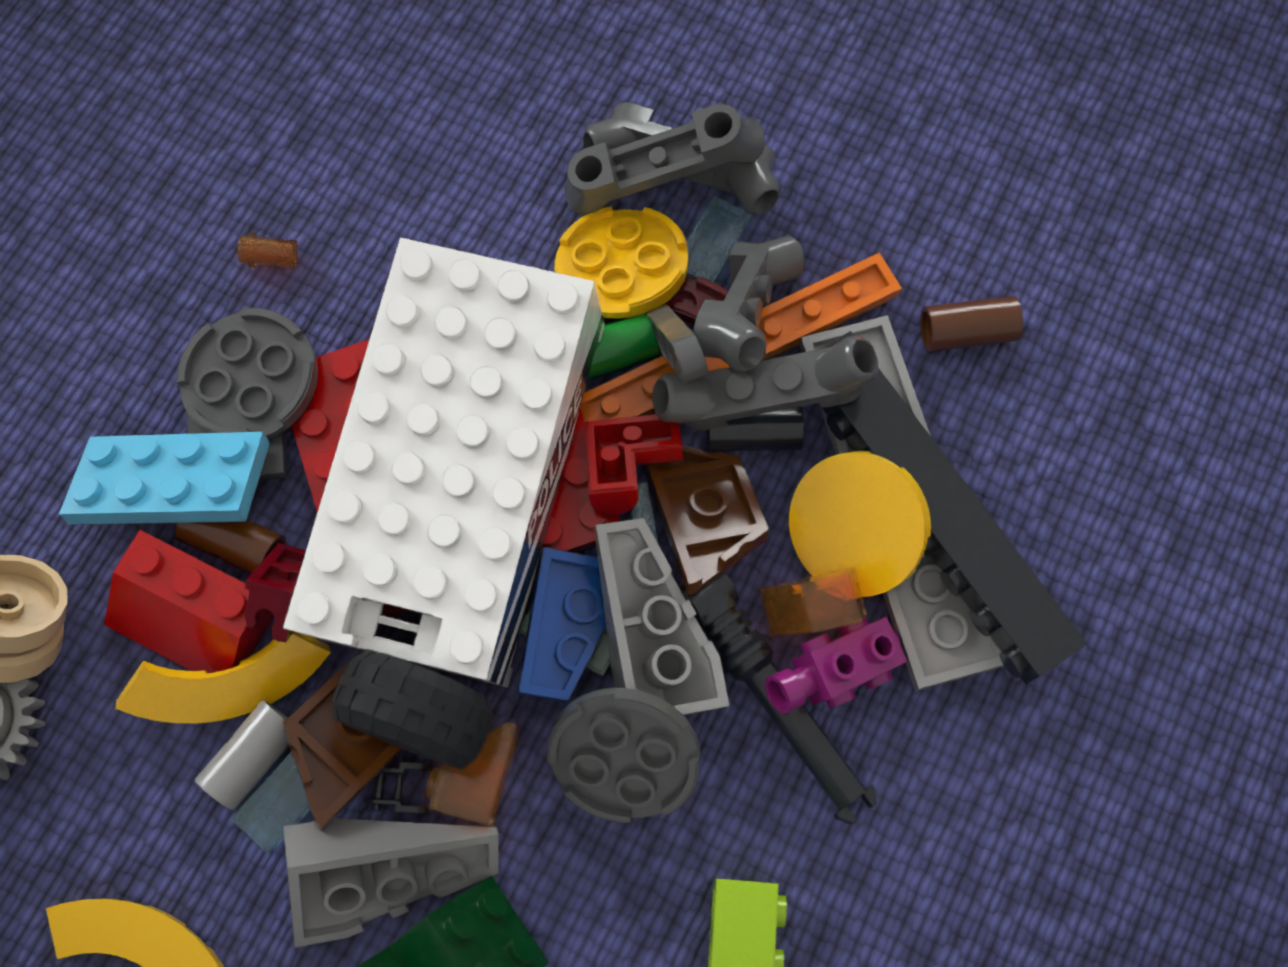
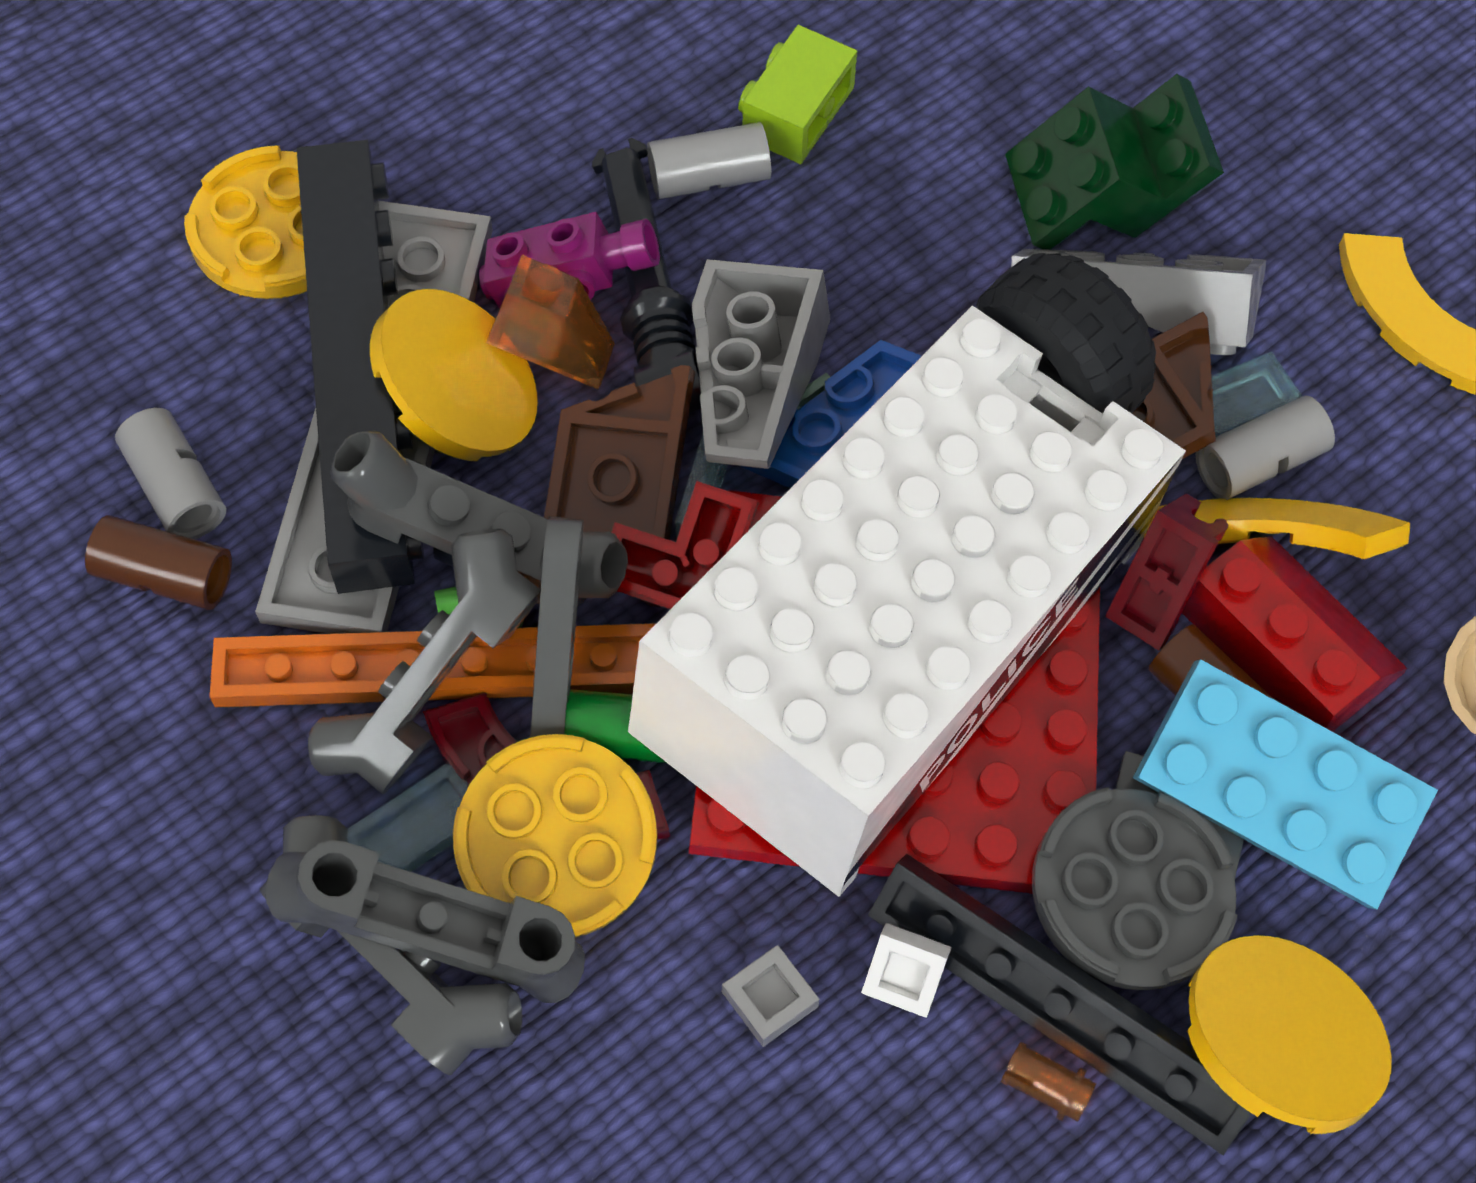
camera: 155 degrees left, 10 degrees down
(125, 323) = (1288, 1034): none -> yellow tile
(292, 299) = (1062, 1002): none -> black plate
(370, 275) = (906, 970): none -> white plate
(450, 227) = (770, 995): none -> light grey plate
(624, 754) = (844, 259): dark grey tile -> none
(782, 827) = (709, 159): none -> light grey pin
(1007, 385) = (170, 473): none -> light grey pin
(1107, 613) = (250, 225): none -> yellow tile

